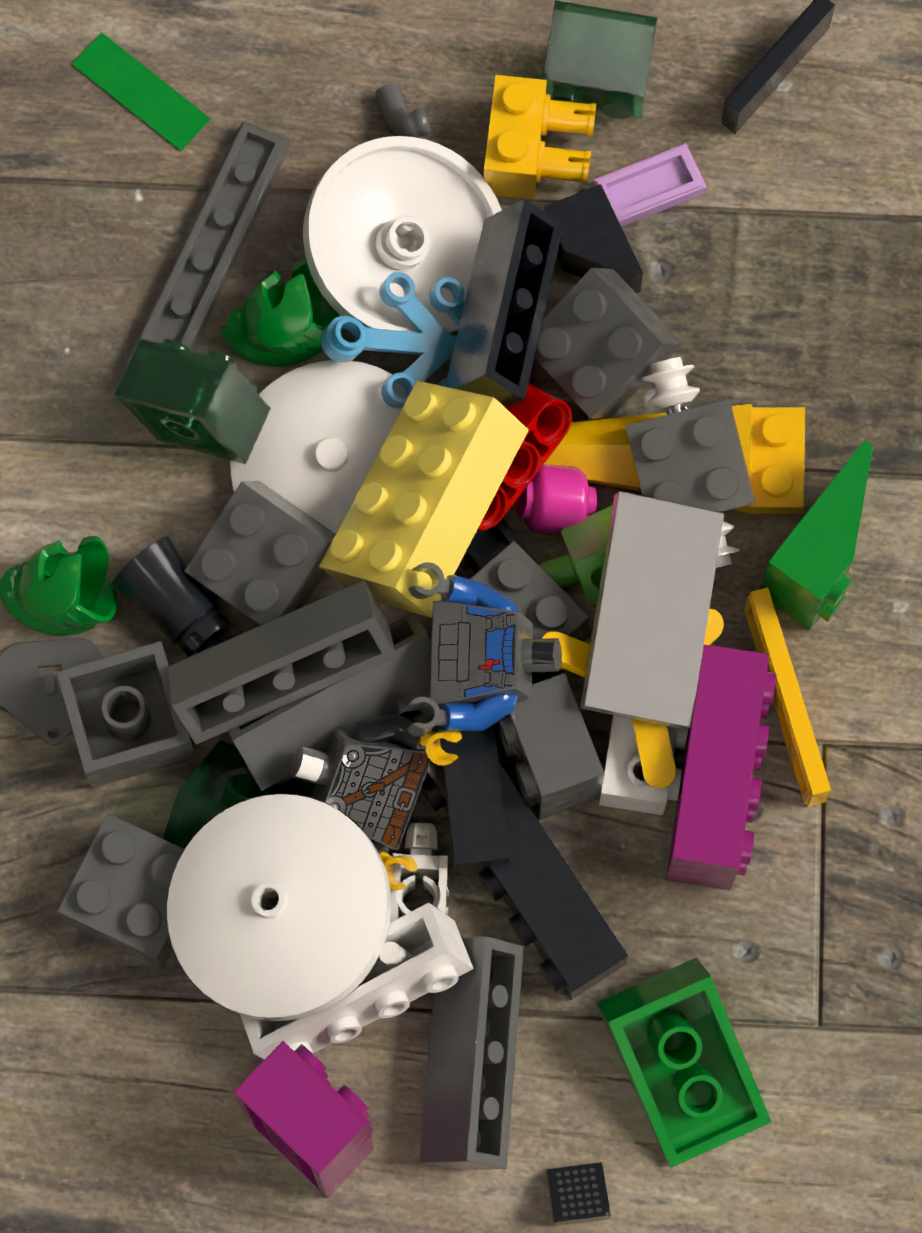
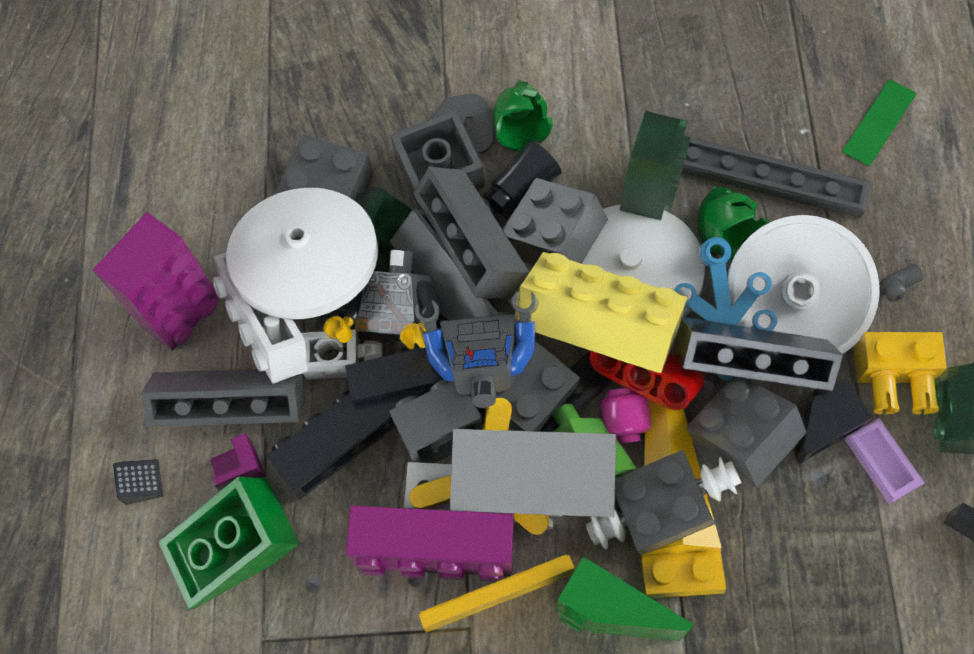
camera: 90 degrees right, 5 degrees down
(570, 1048) = (238, 462): none -> magenta panel

